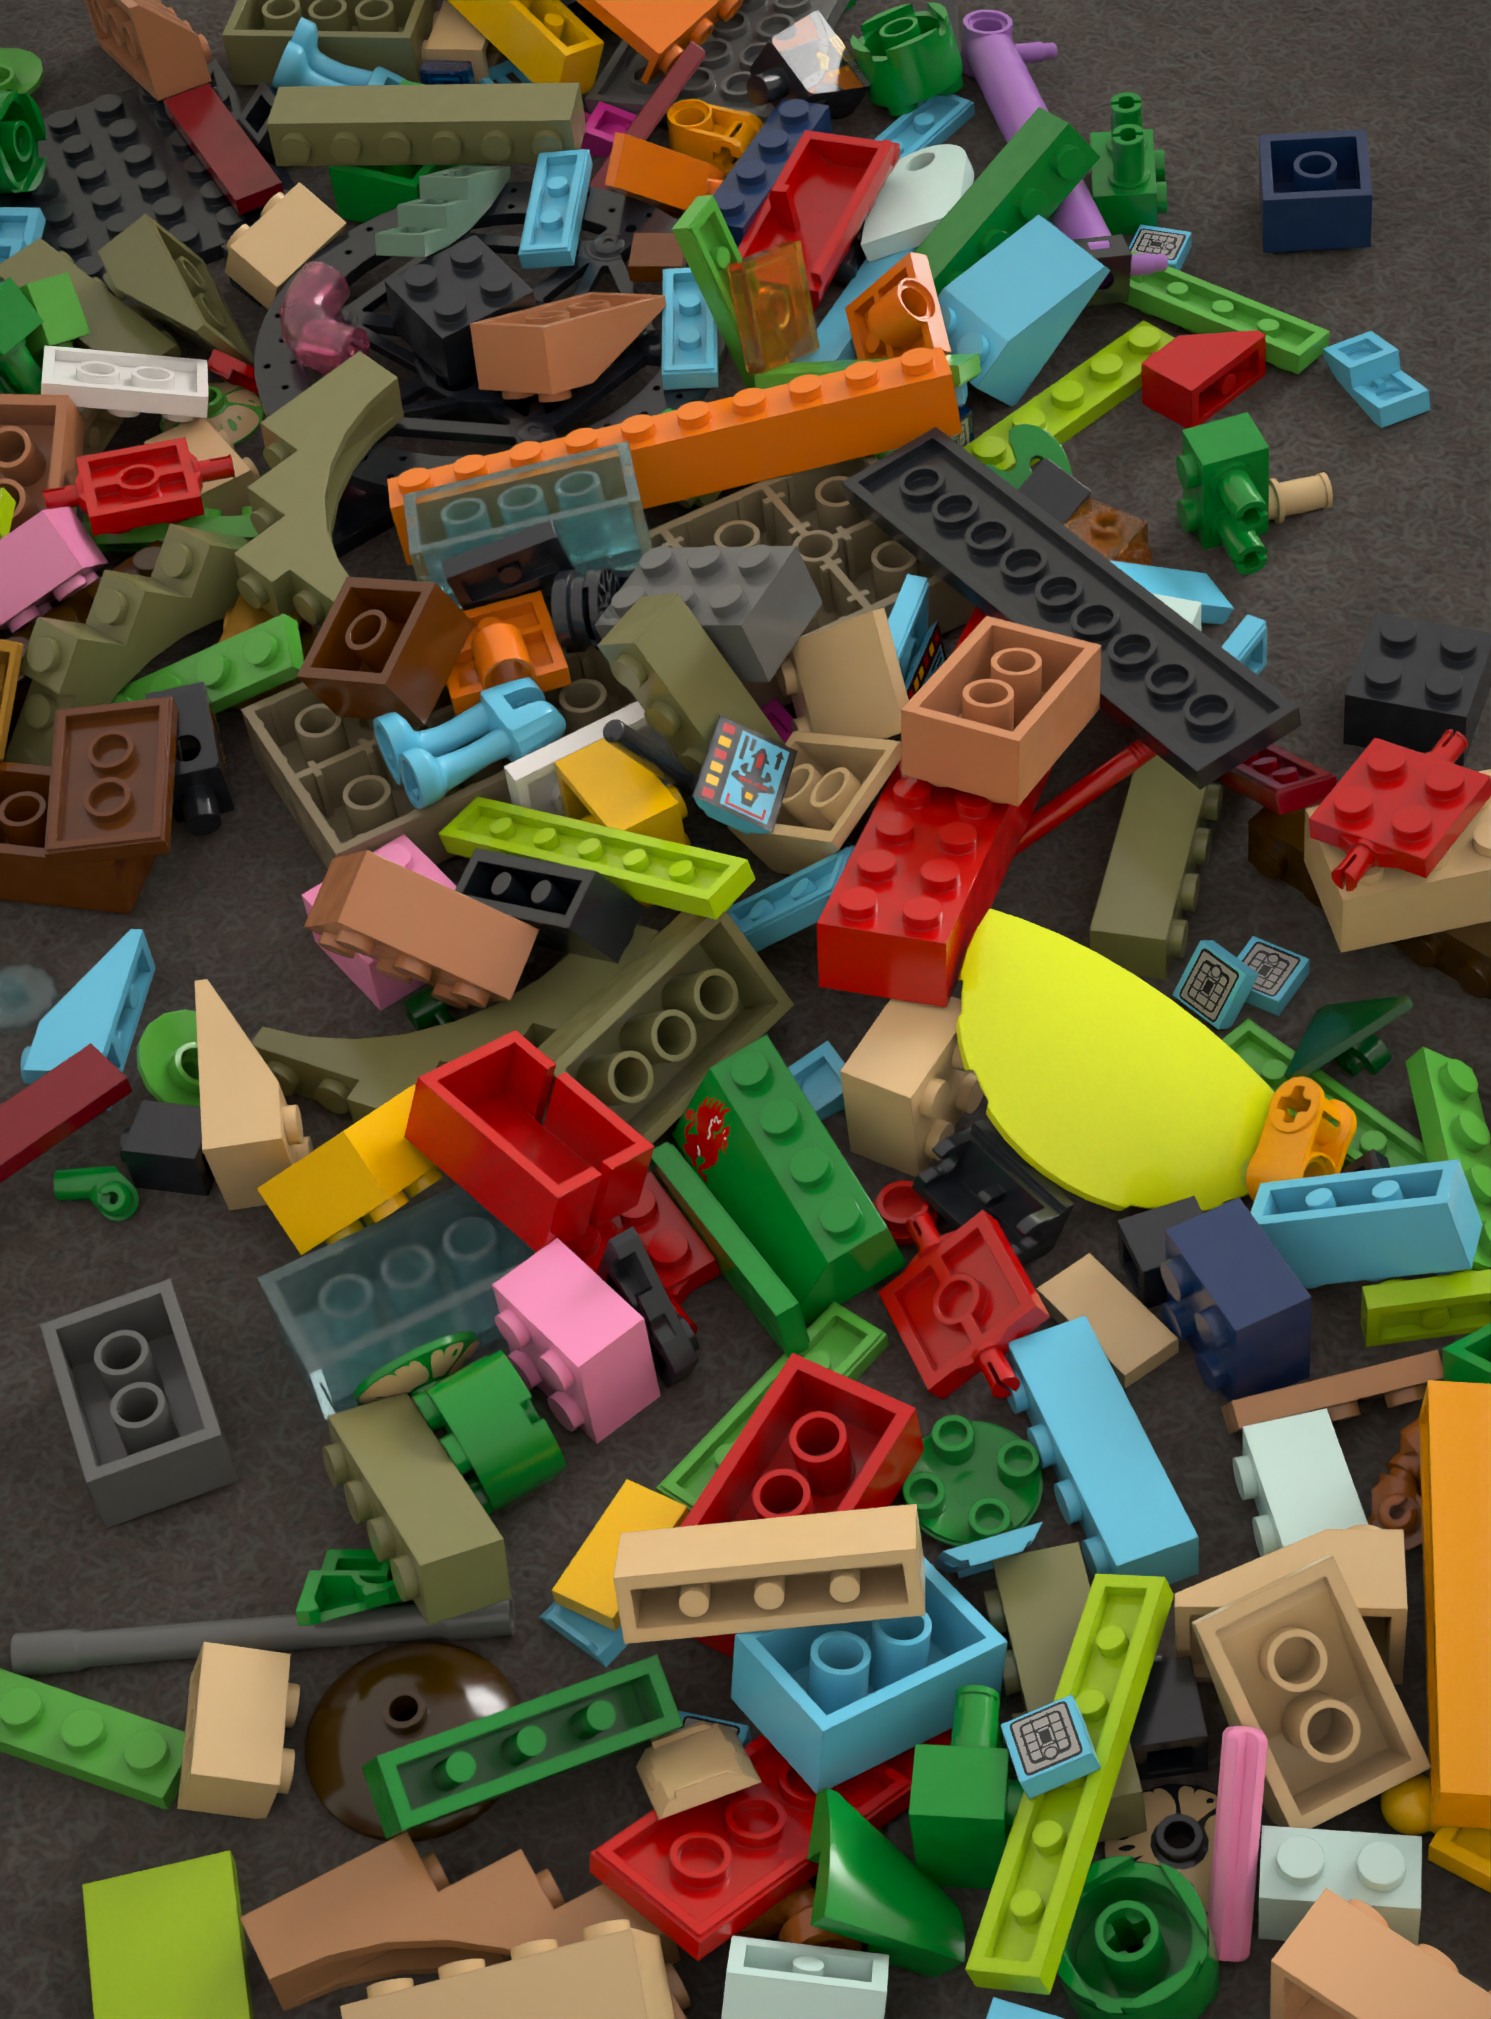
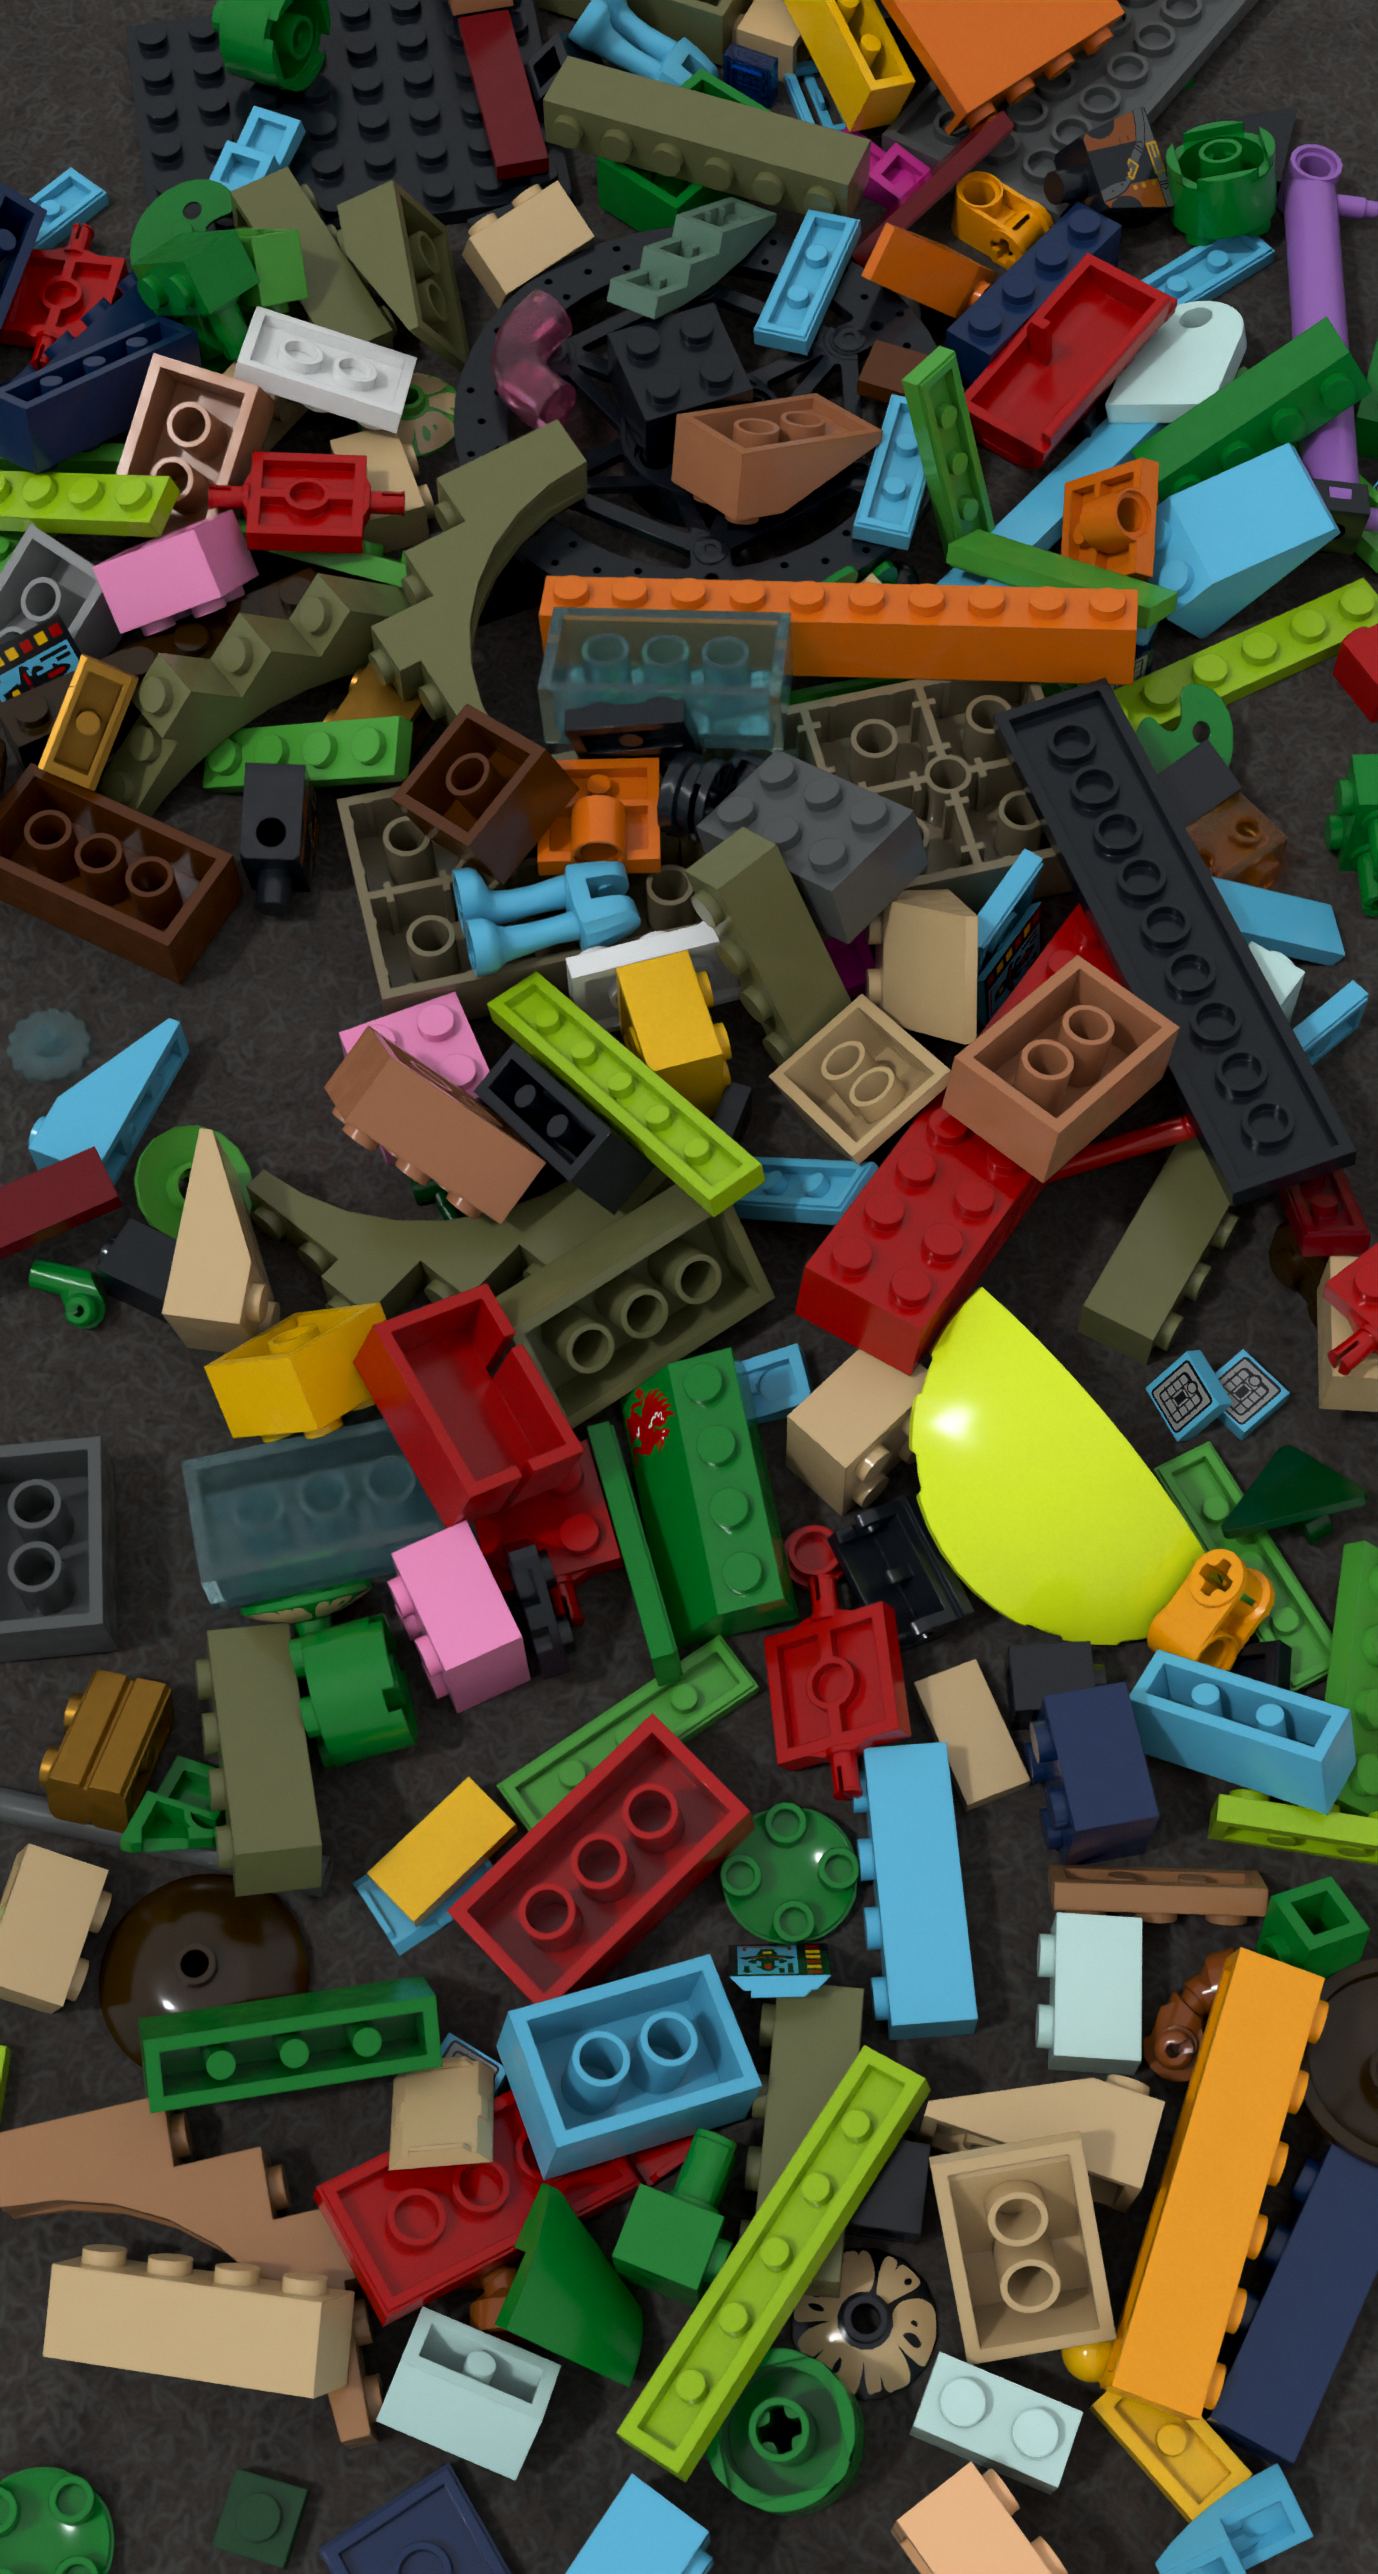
camera: 10 degrees right, 15 degrees up
(111, 781) = (188, 854): reddish brown tile -> none
(232, 370) = (439, 369): red tile -> none
(256, 1554) = (107, 1750): none -> pearl gold brick
(649, 756) = (720, 1013): black piece -> none
(743, 778) = (794, 1042): piece -> none
(770, 1574) = (558, 1961): tan brick -> none
(773, 307) = (989, 471): clear orange tile -> none
(1050, 1746) = (762, 2229): tile -> none
(1237, 1840) = (912, 2358): bright pink axle -> none

